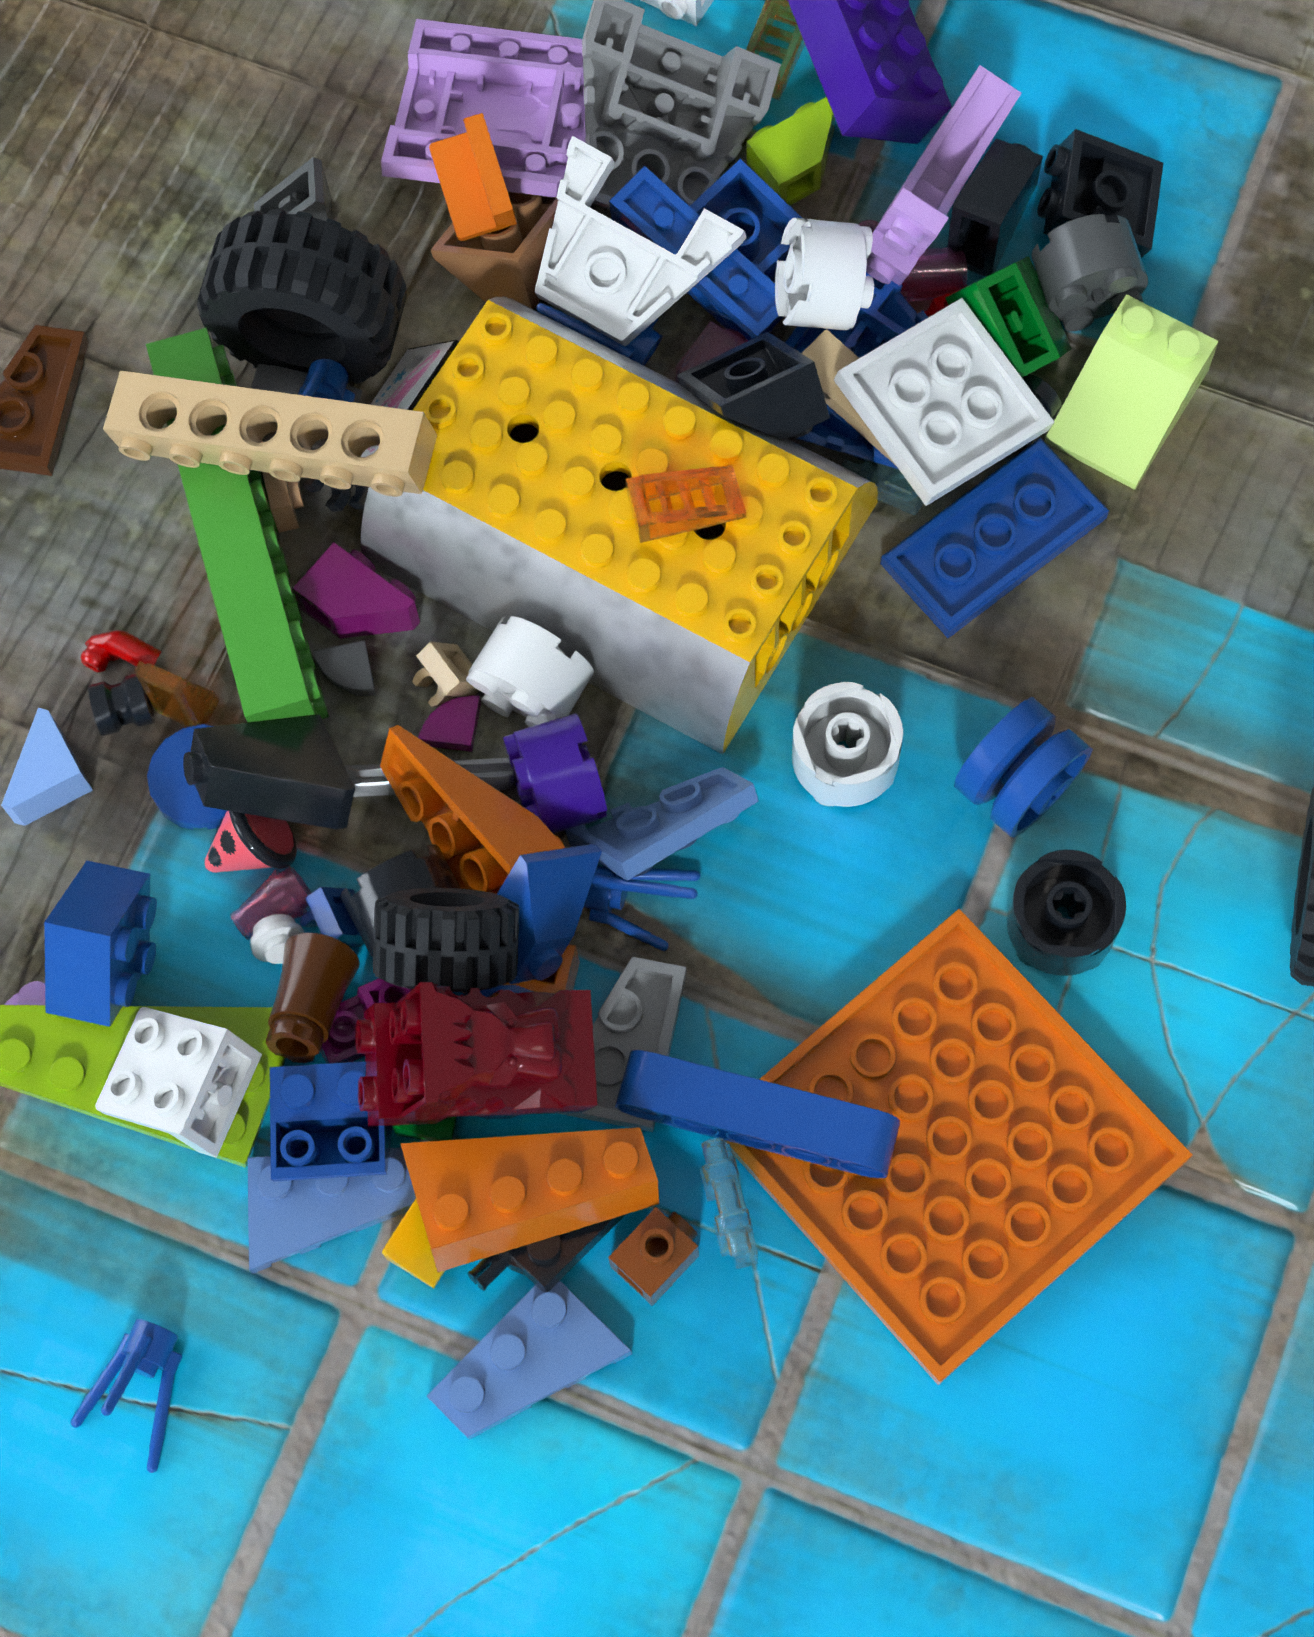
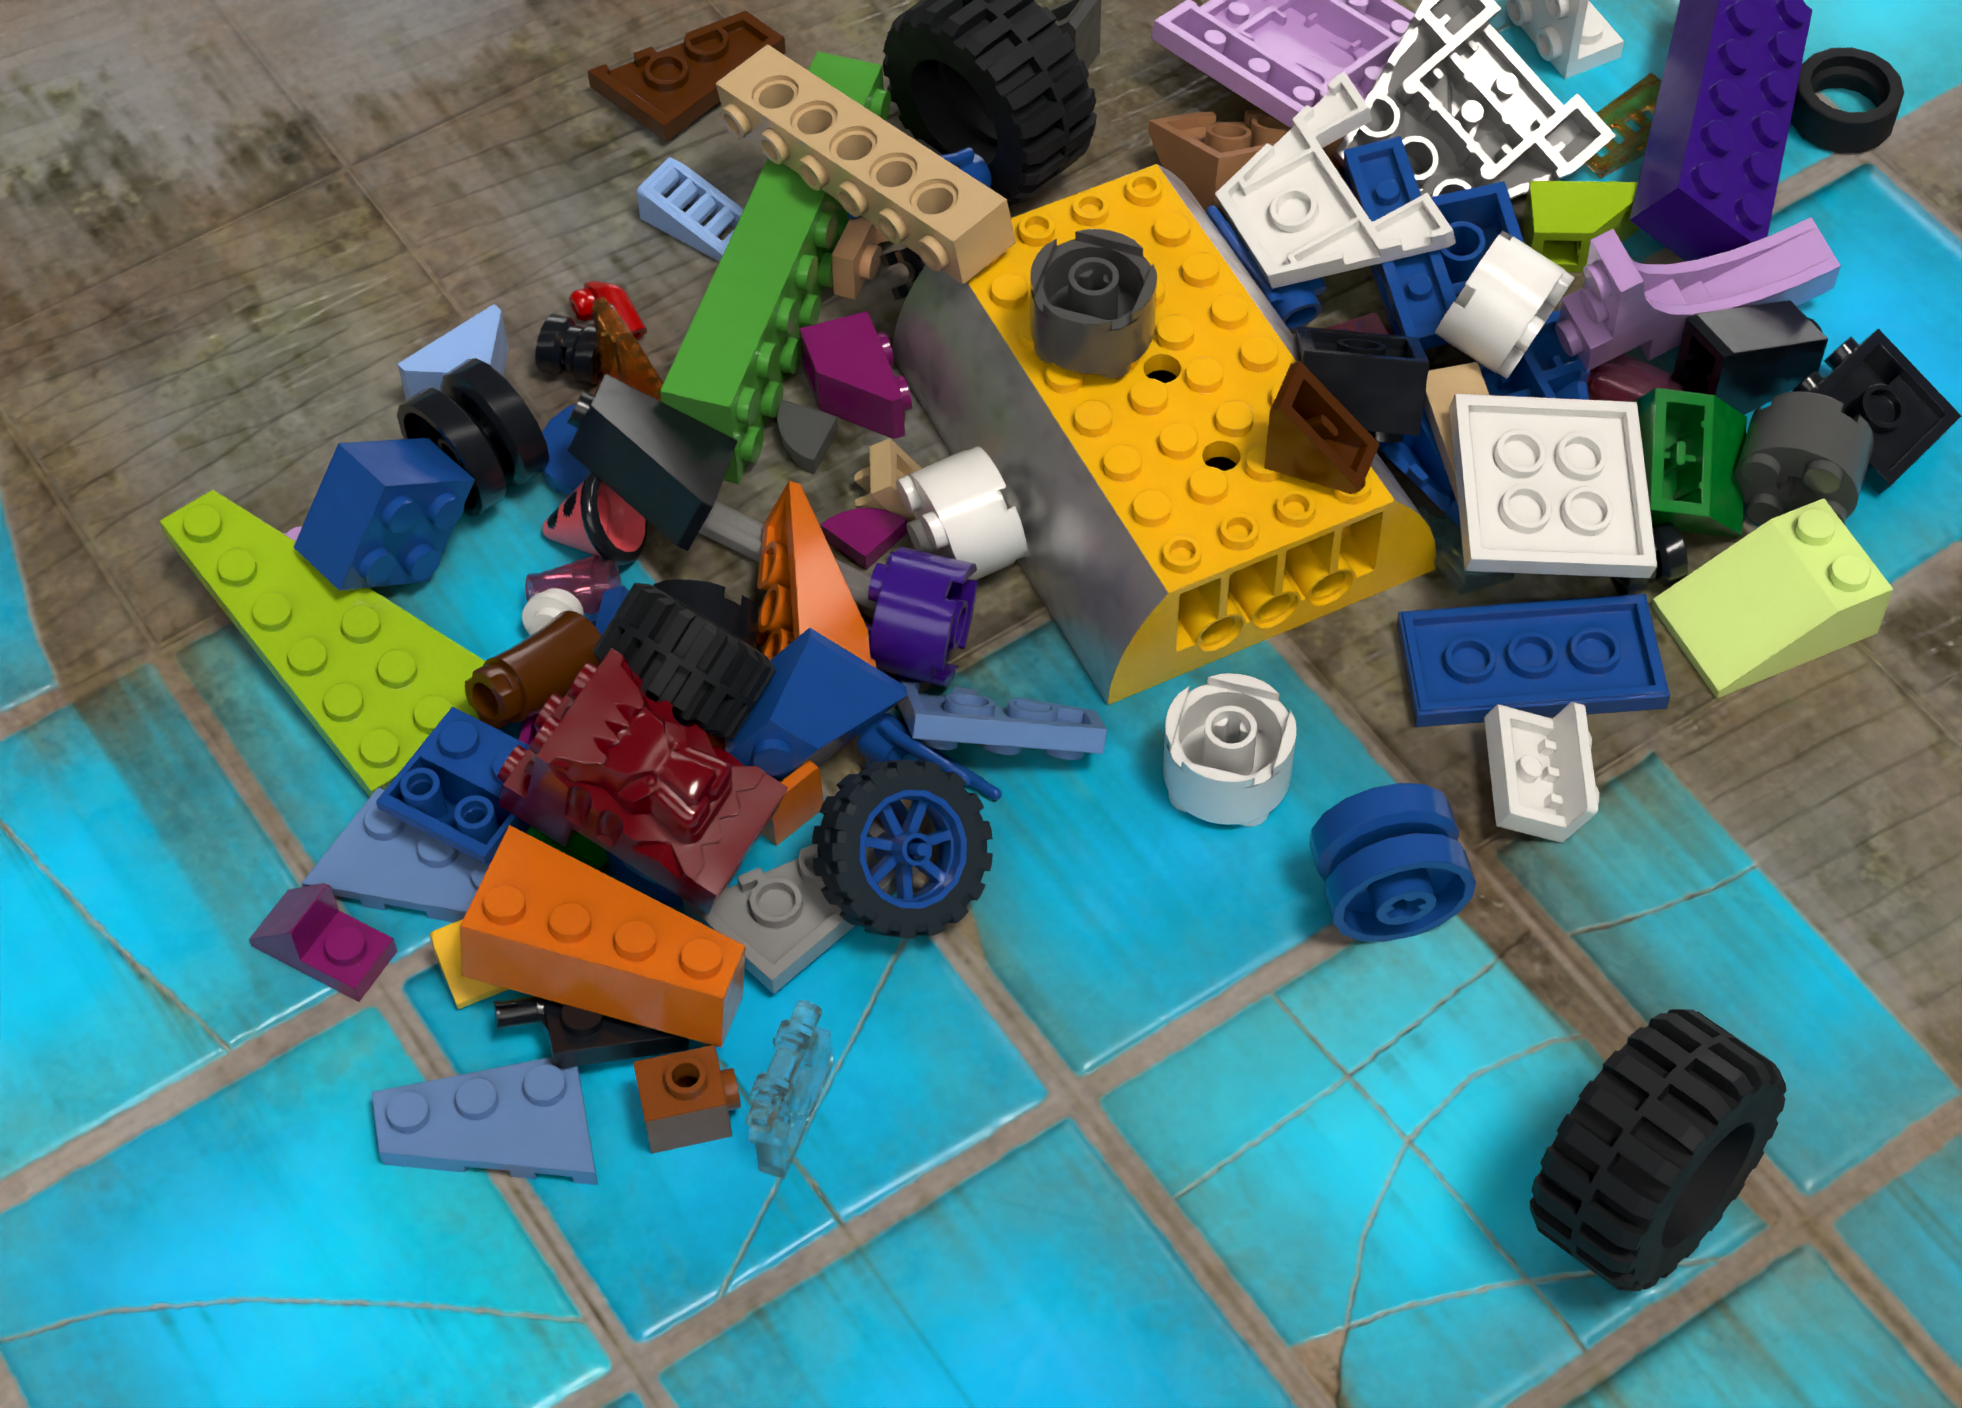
camera: 30 degrees right, 15 degrees down
(111, 826) = (480, 427): none -> black wheel
(112, 508) = (670, 191): none -> light blue slope
(143, 1353) = (151, 895): blue plant -> none
(180, 1078) = (367, 672): white bracket -> none
(296, 1303) = (324, 942): none -> magenta slope
(472, 181) = (1229, 74): orange panel -> none
(544, 460) = (1092, 303): none -> dark grey brick
(666, 484) = (1191, 388): clear orange slope -> none
(711, 959) = (844, 840): none -> black wheel
(758, 1114) = (881, 1022): blue beam -> none
(781, 475) = (1316, 435): none -> reddish brown slope
(1003, 1154) = (1061, 1182): orange plate -> none
(1065, 624) = (1541, 771): none -> white bracket
(1093, 901) = (1338, 1027): black brick -> none

